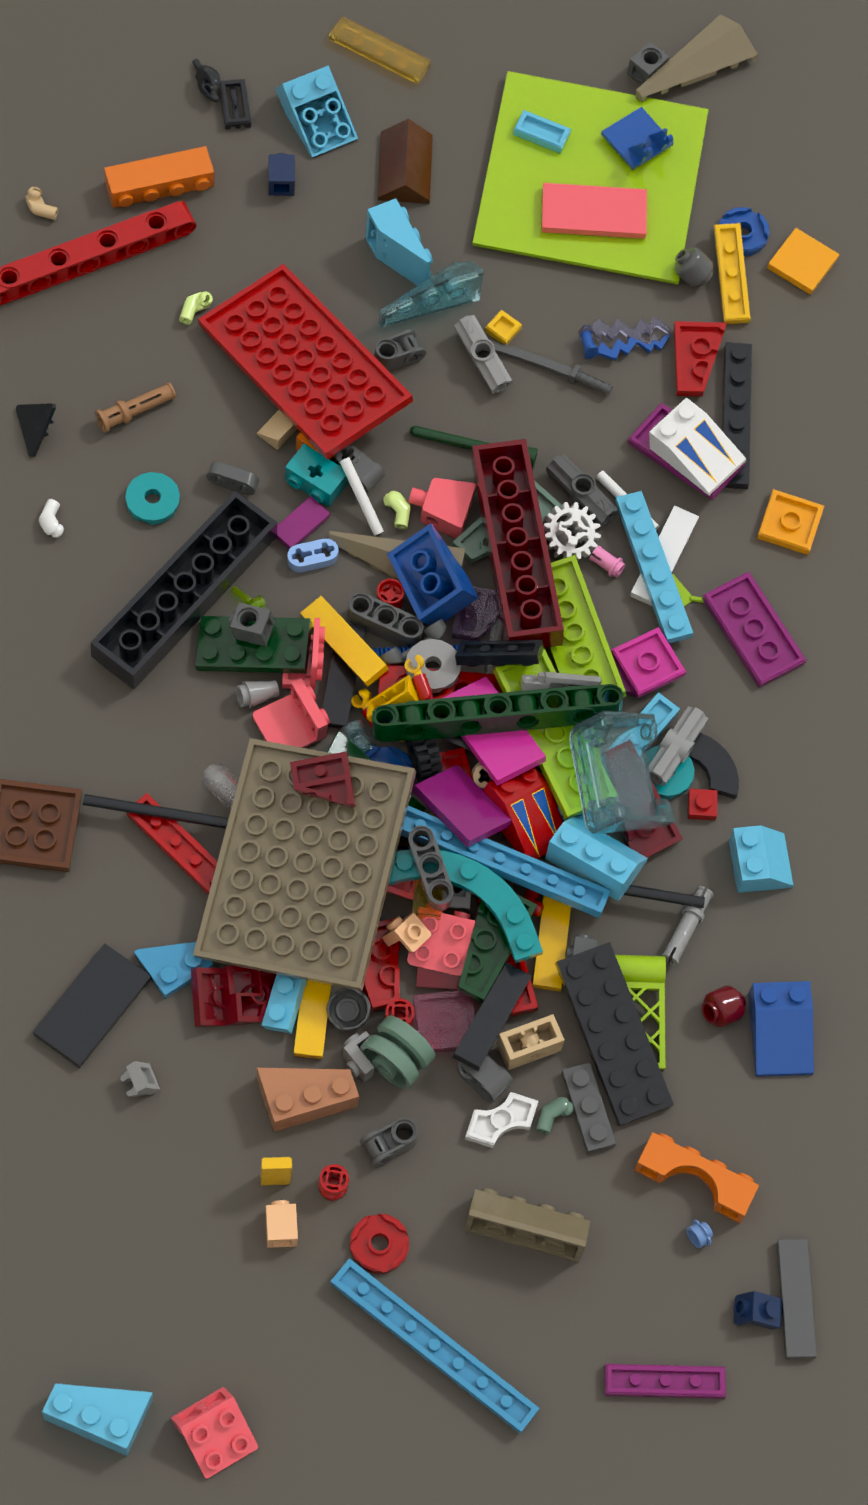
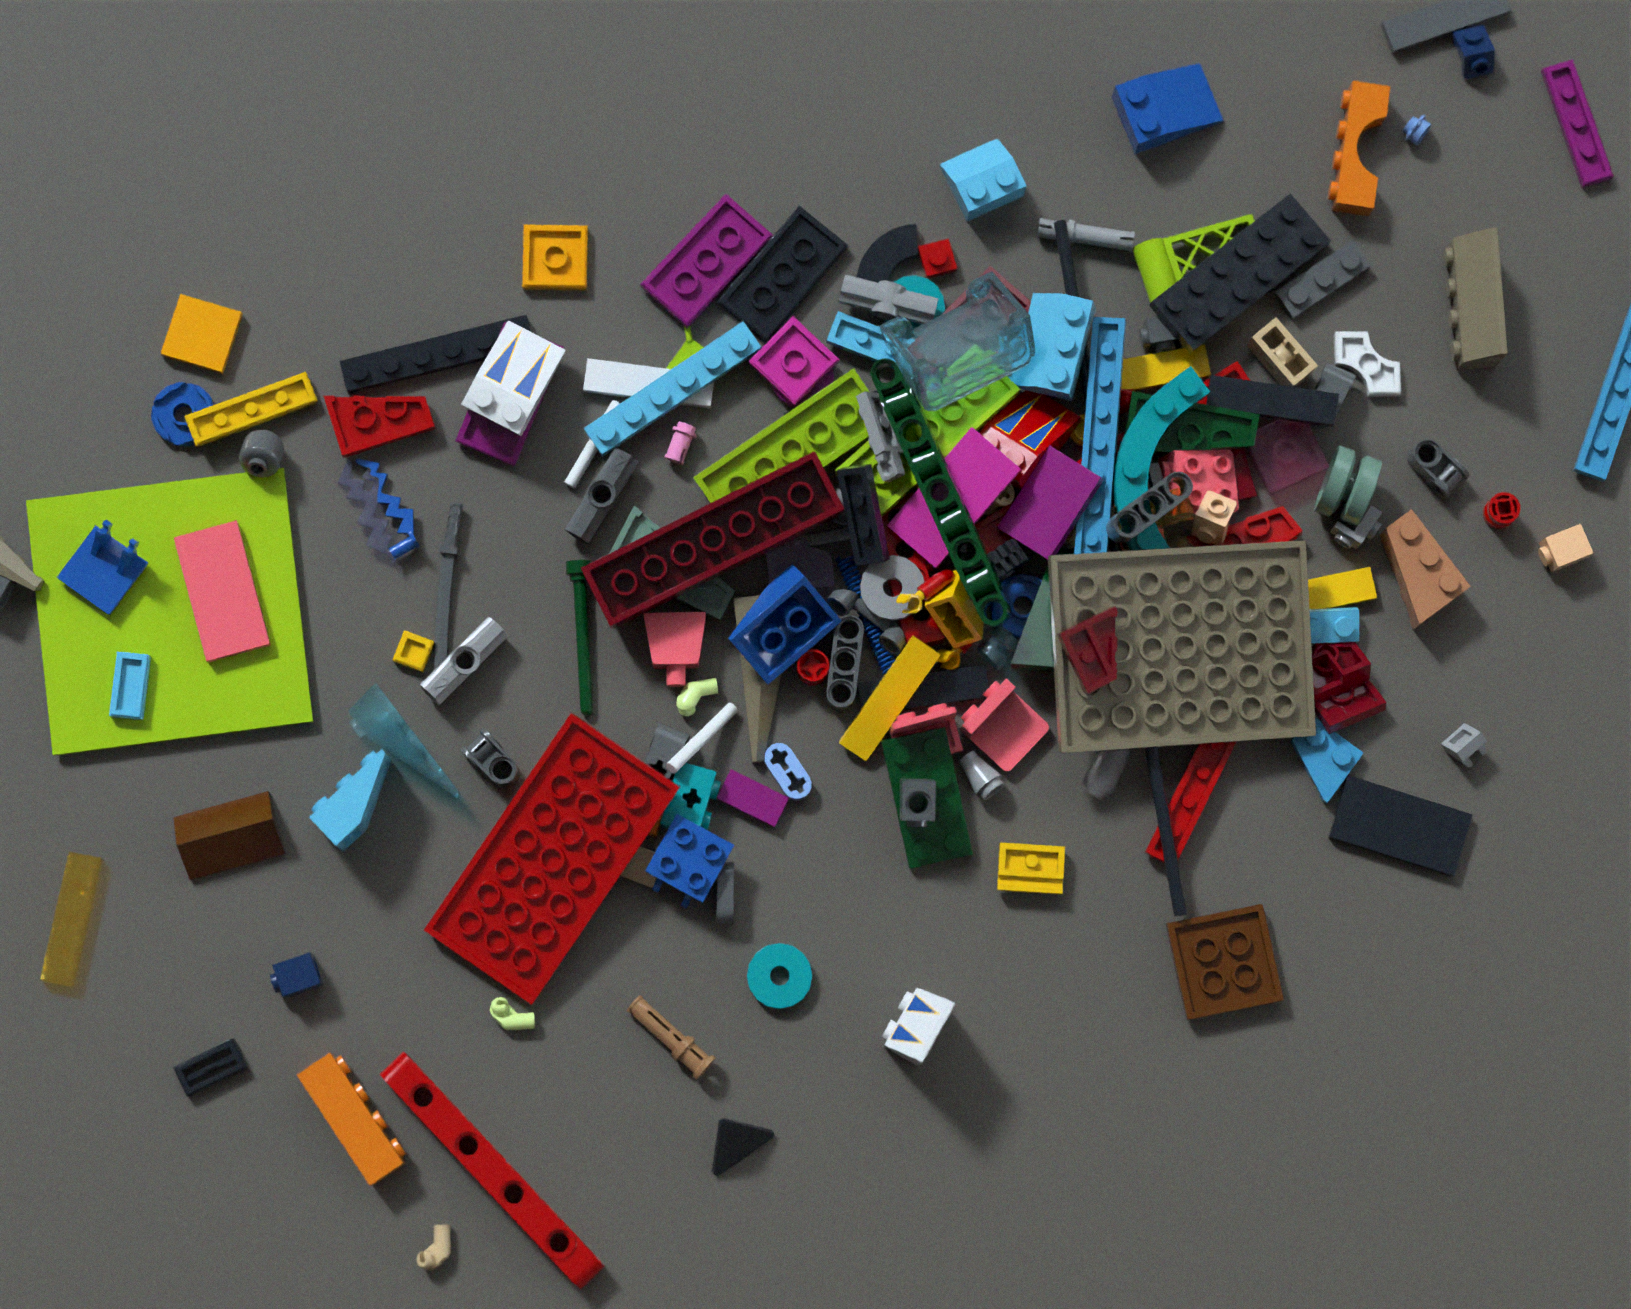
camera: 105 degrees left, 15 degrees up
(48, 520) = (851, 1082): white arm -> none
(69, 574) = (917, 1025): none -> white slope
(166, 704) = (1031, 868): none -> yellow plate
(183, 590) = (890, 895): black brick -> none
(207, 79) = (191, 1110): black hand -> none
(257, 601) = (872, 813): clear neon green hand -> none
(268, 453) = (689, 859): none -> blue plate
(276, 1171) = (1519, 568): yellow tile -> none
(317, 111) = (190, 964): medium azure slope -> none
(348, 1009) = (1321, 552): dark grey hair -> none
(371, 1259) = (1529, 459): red tile -> none
(406, 1008) = (1296, 505): red wheel -> none
(551, 1110) = (1340, 315): sand green arm -> none
(580, 525) = (670, 483): white gear -> none
(723, 1006) = (1165, 171): dark red head -> none
(726, 684) = (783, 274): none -> black tile

